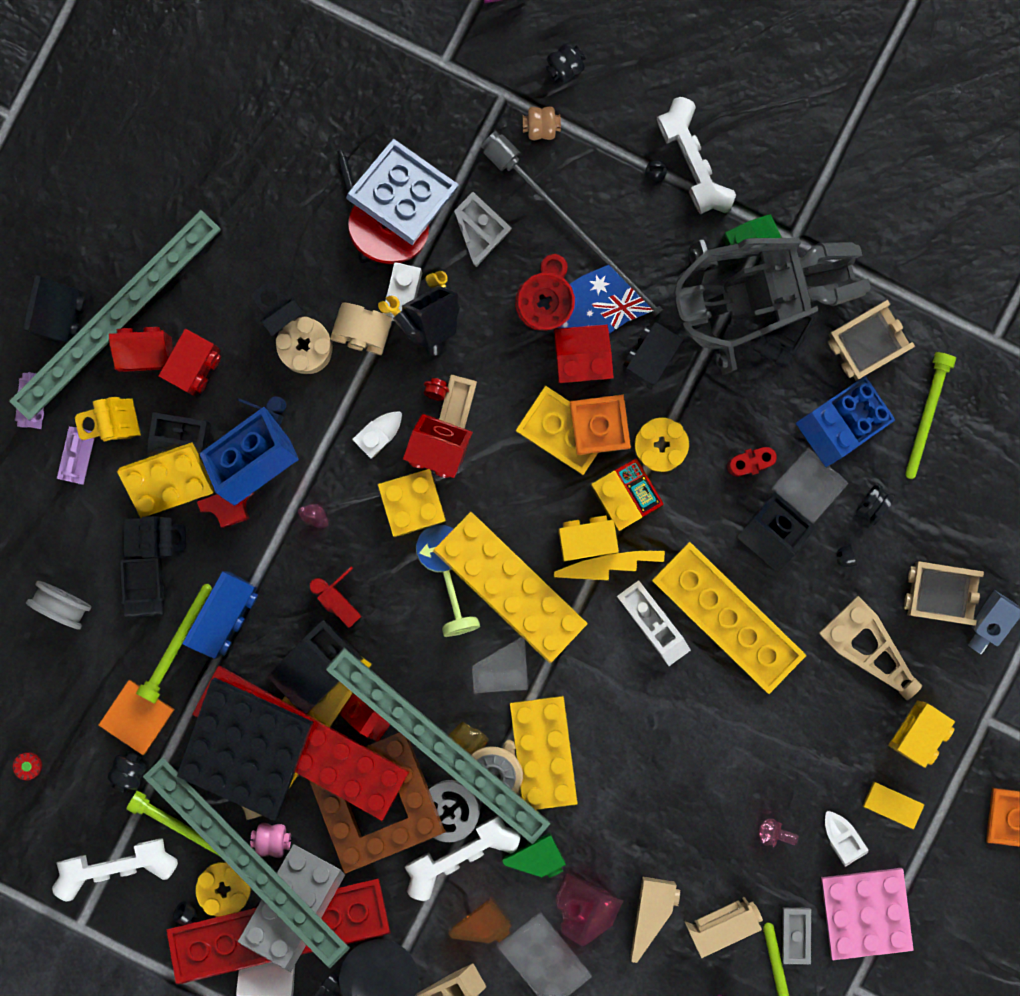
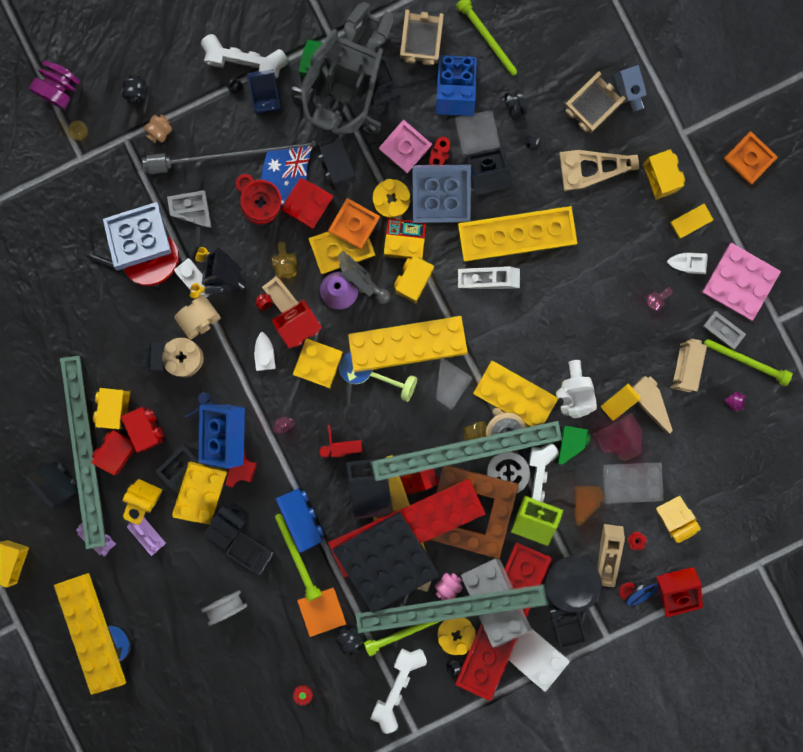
camera: 55 degrees left, 0 degrees up
(189, 309) = (111, 406): none -> yellow brick
(418, 884) = (537, 520): none -> lime slope
(472, 35) = (77, 130): none -> clear yellow plate
(496, 379) = (284, 263): none -> clear yellow piece
(516, 476) = (338, 298): none -> medium lavender cone
(544, 479) = (361, 278): none -> dark grey plate
(598, 822) = (577, 393): none -> white piece
(599, 567) = (434, 284): yellow slope -> none
(625, 878) = (620, 402): none -> yellow tile
(674, 210) = (264, 91): none -> dark blue piece
(709, 497) = (441, 193): none -> sand blue plate
(732, 416) = (405, 146): none -> bright pink plate

